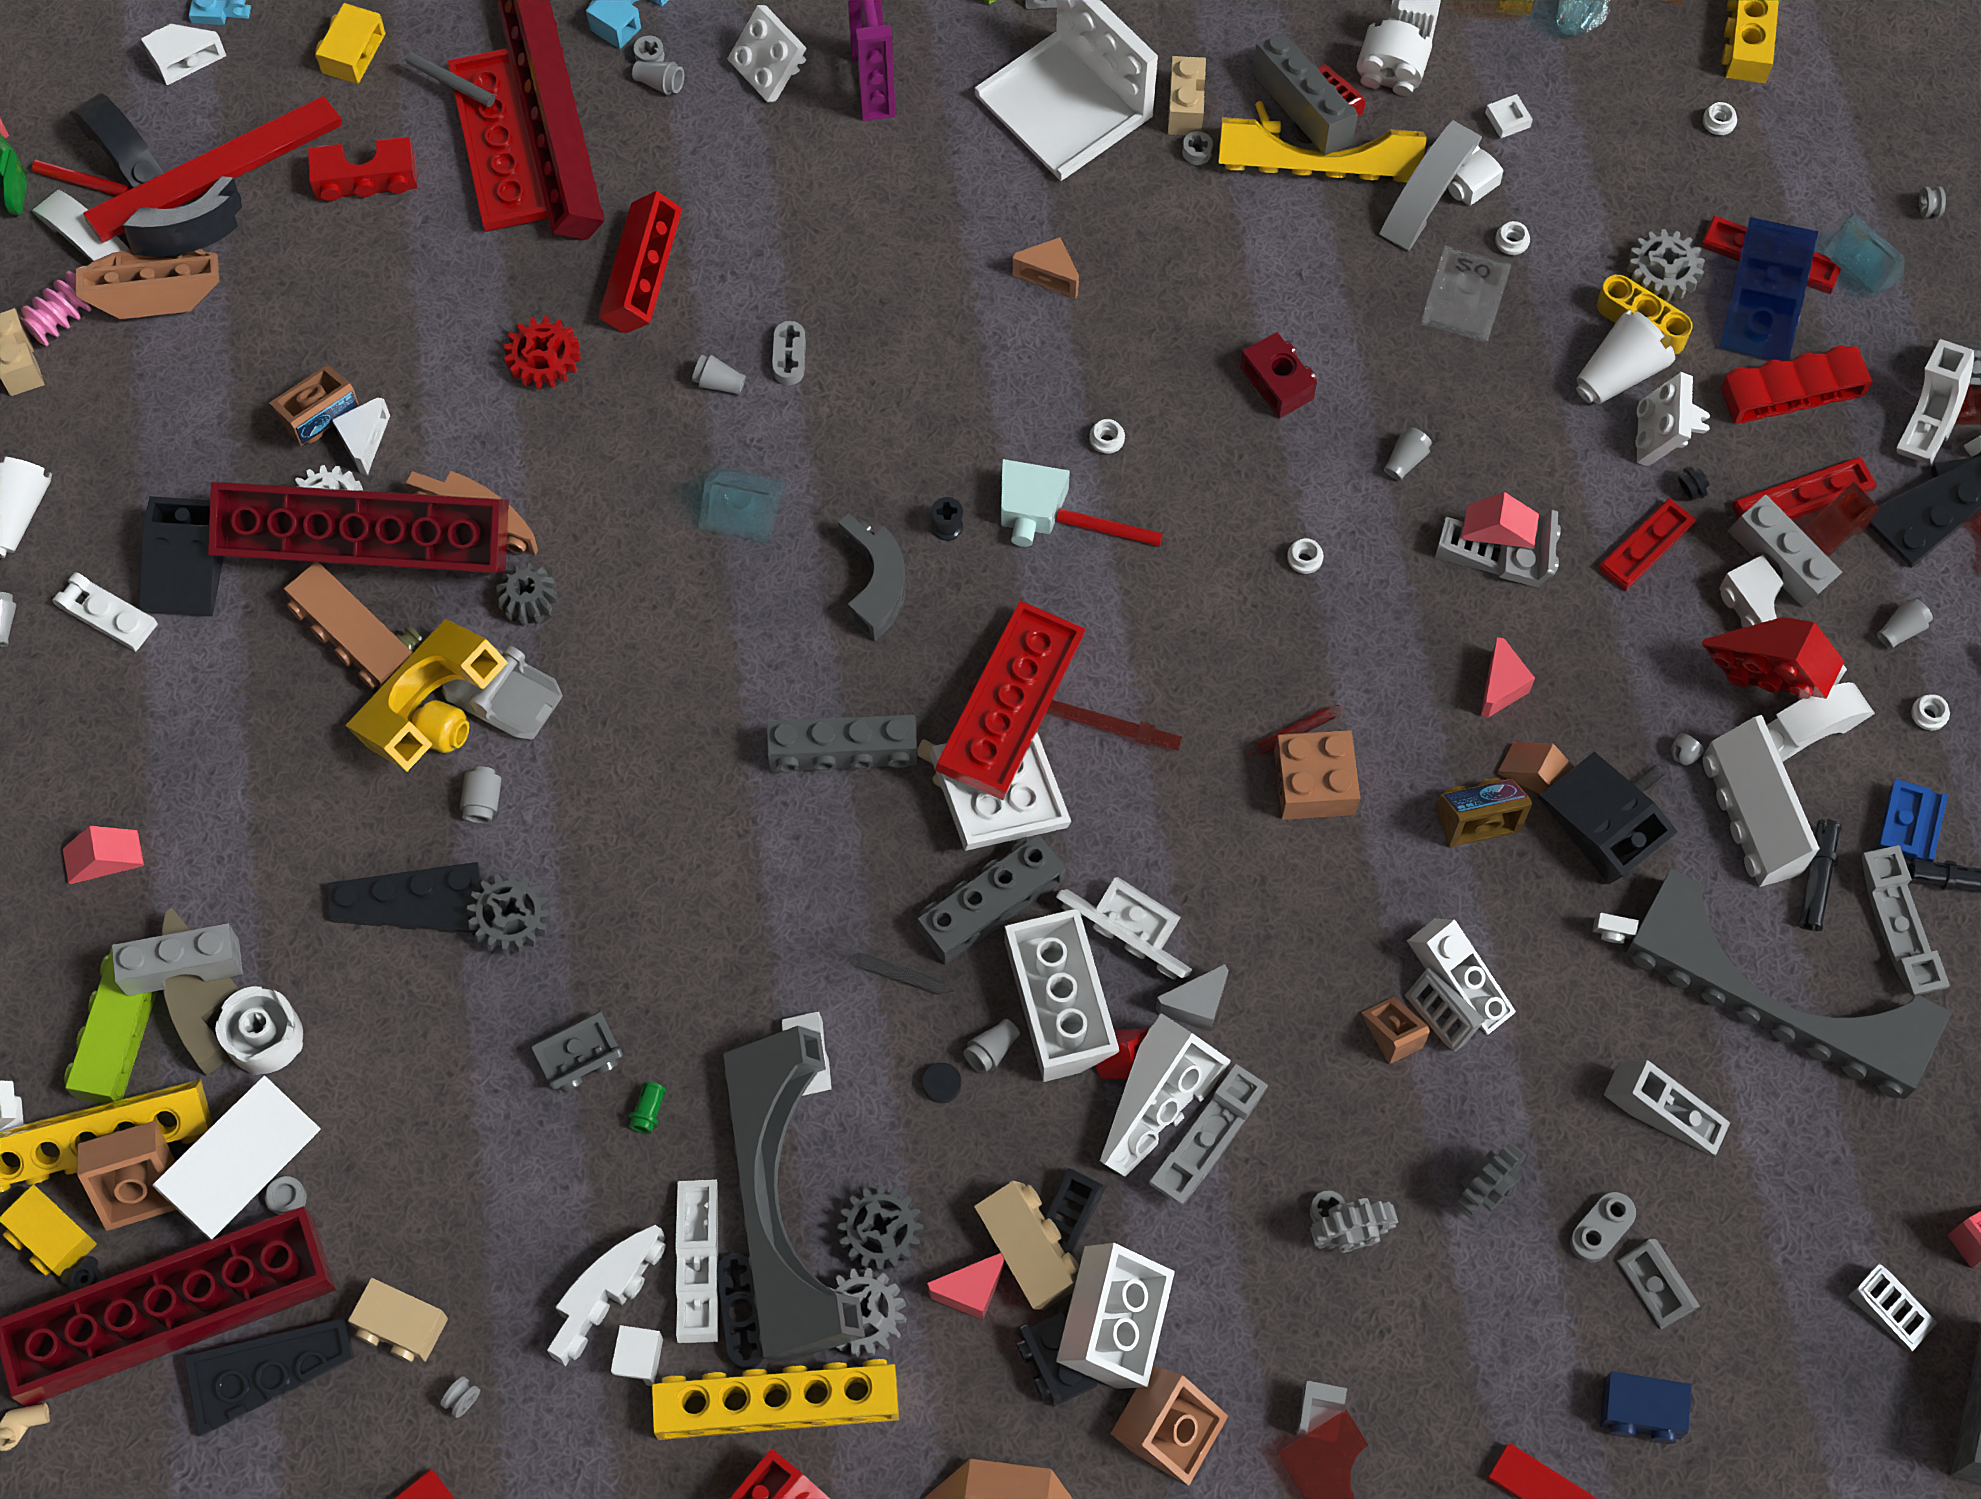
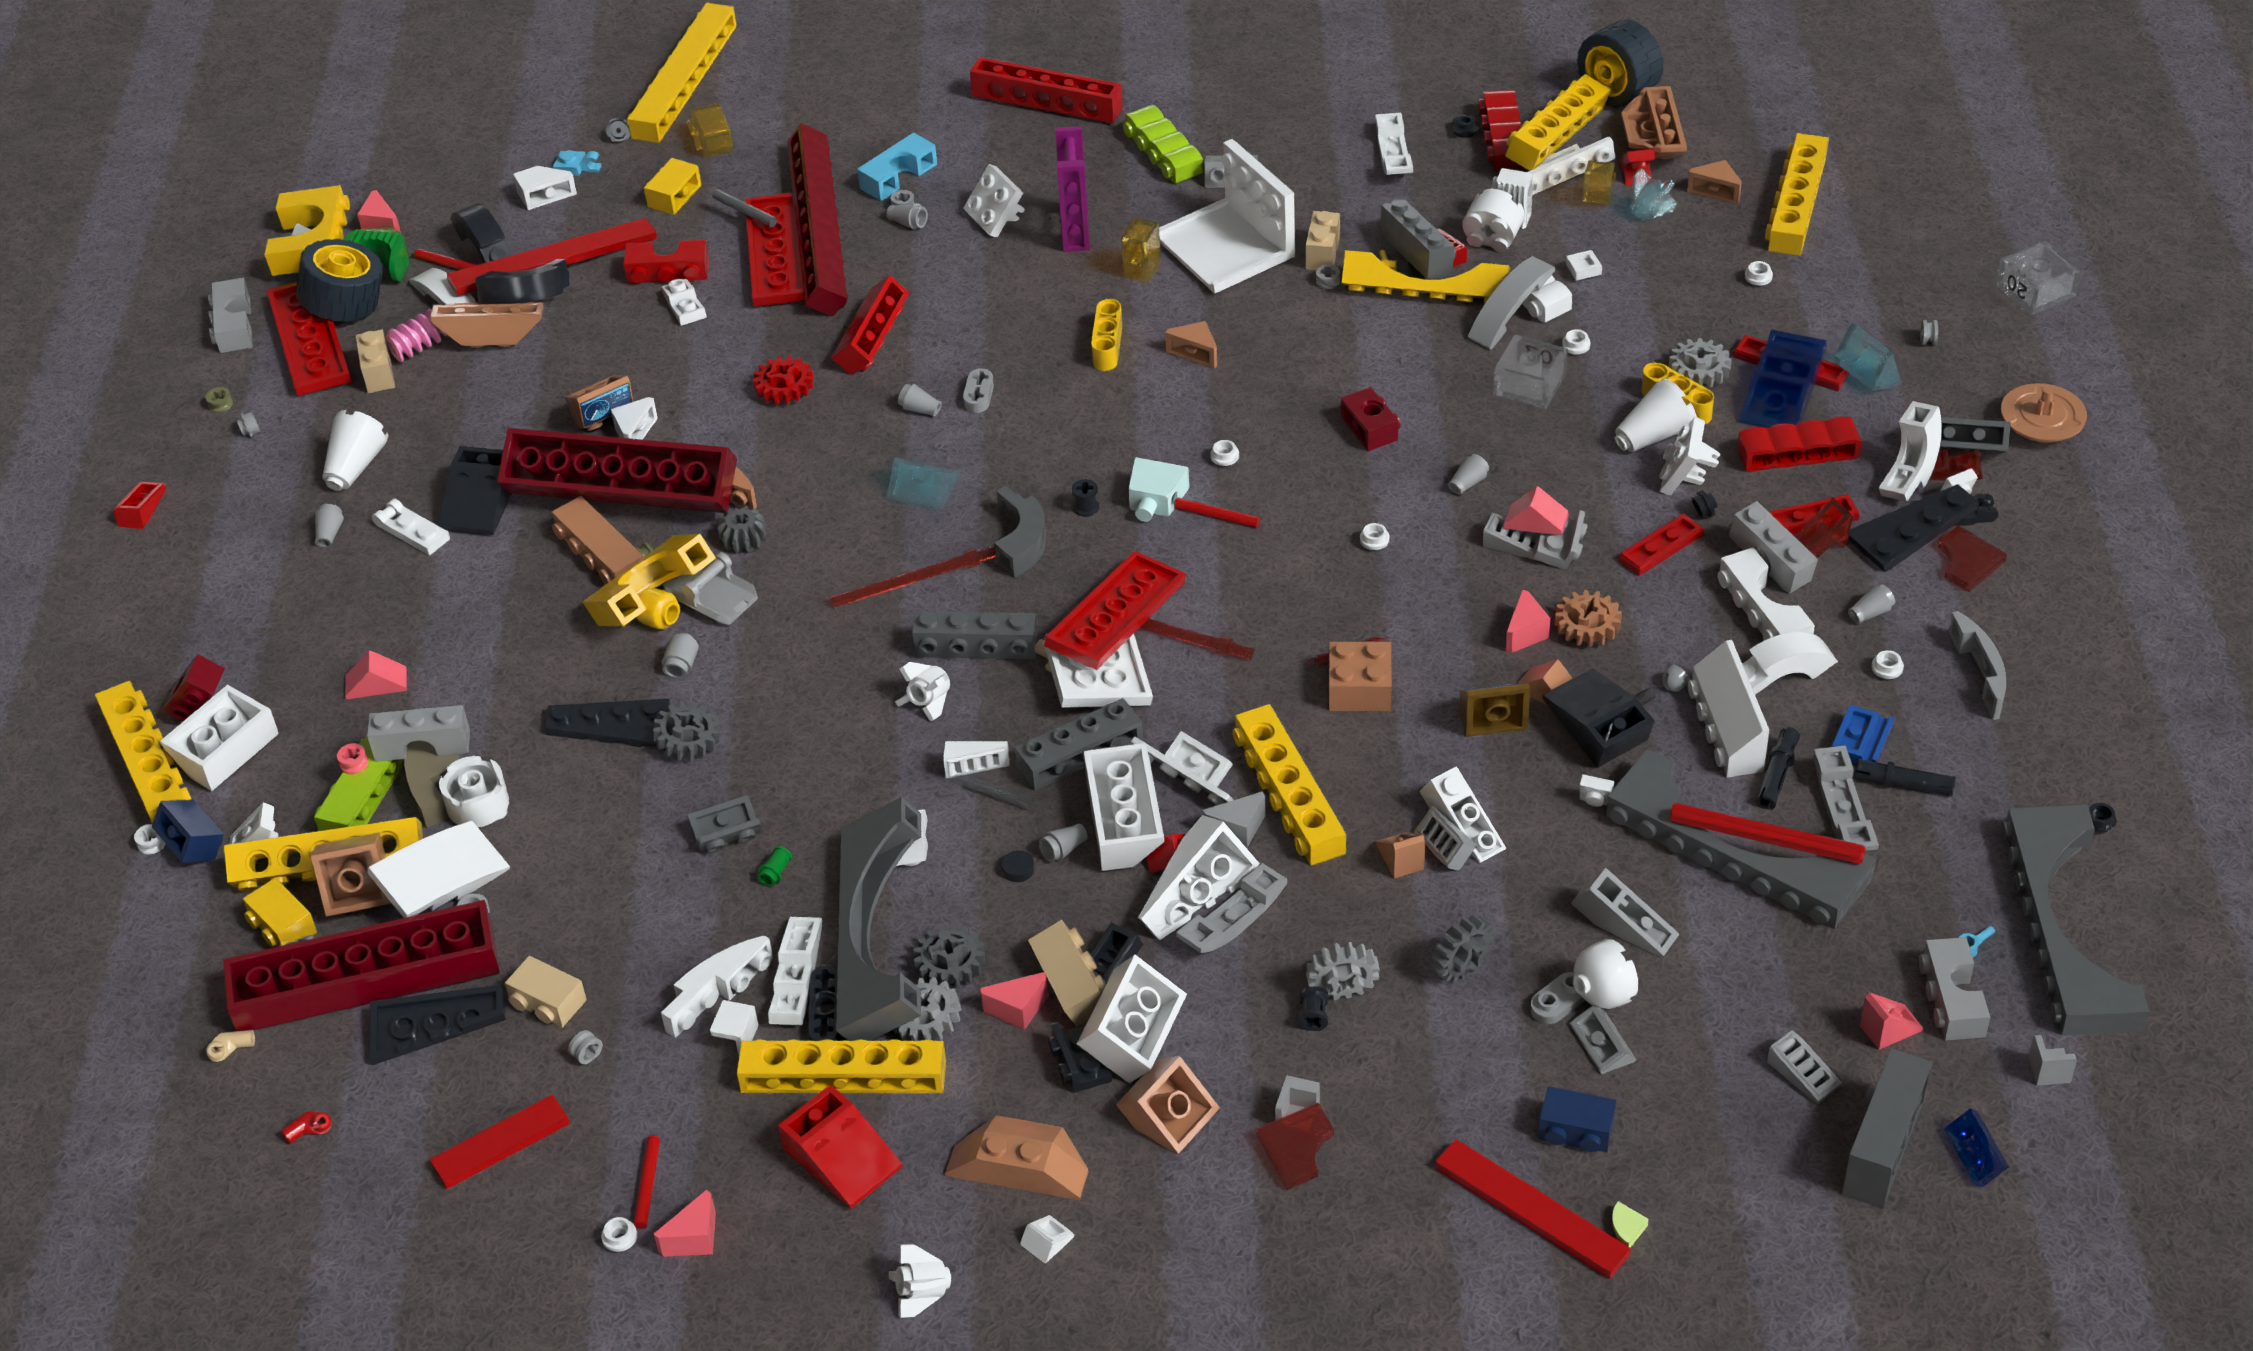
camera: 10 degrees right, 20 degrees down
(98, 987) = (352, 758): none -> coral bush
(394, 229) = (683, 301): none -> white slope
(793, 829) = (928, 685): none -> white brick
(816, 619) = (969, 558): none -> clear red bar
(861, 928) = (966, 756): none -> white slope
(938, 245) = (1106, 335): none -> yellow beam
(965, 127) = (1141, 250): none -> clear yellow brick
(1213, 858) = (1290, 785): none -> yellow brick
(1321, 1270) = (1313, 1009): none -> black bush
(1558, 667) = (1588, 618): none -> nougat gear
(1658, 1208) = (1604, 975): none -> white cylinder
(1778, 656) = (1751, 604): red slope -> none
(1826, 988) = (1767, 833): none -> red axle

